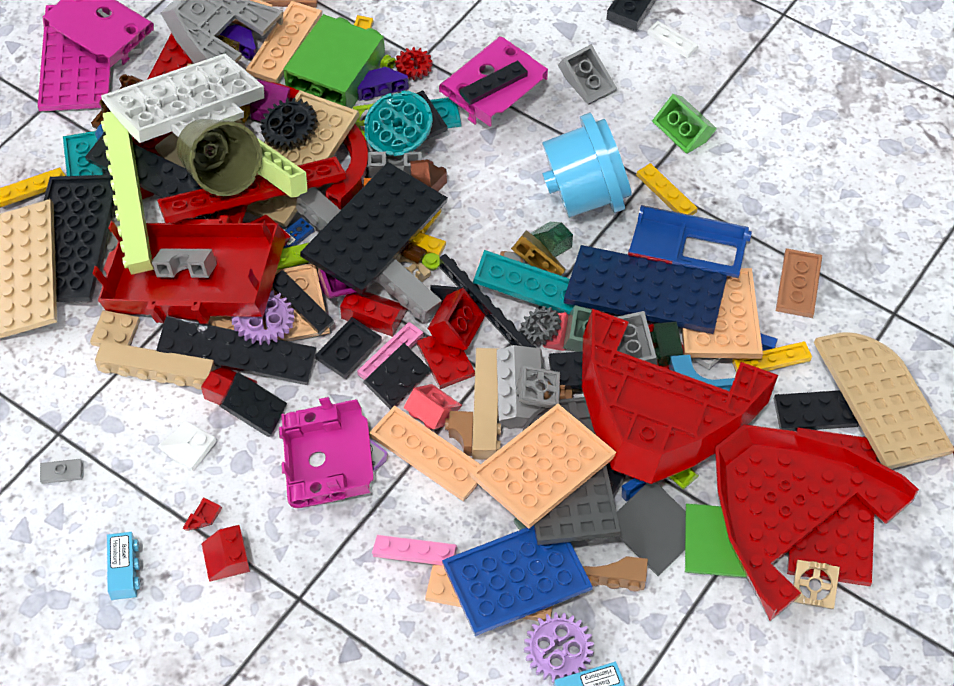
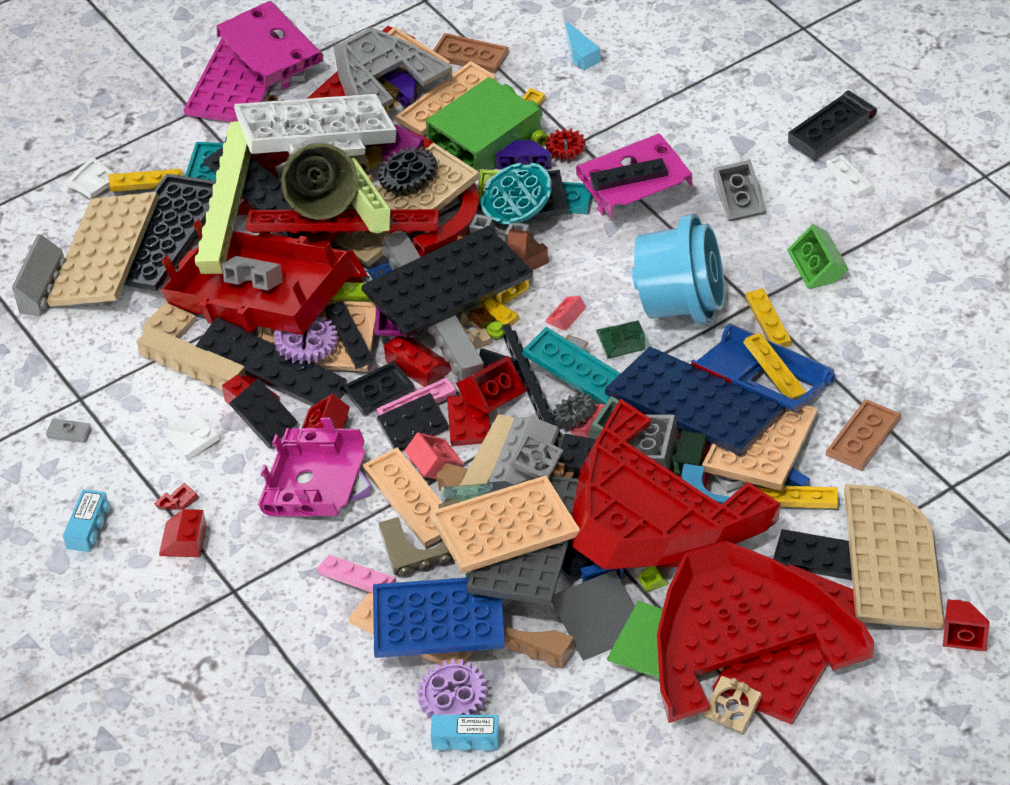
camera: 25 degrees right, 10 degrees down
(309, 389) = (329, 407): none -> red slope
(447, 515) = (405, 556): none -> dark tan arch
(486, 228) = (566, 312): none -> coral slope
(486, 439) = (465, 492): none -> clear light blue piece
(537, 254) = (600, 343): pearl gold slope -> none
(699, 238) = (774, 366): none -> yellow plate

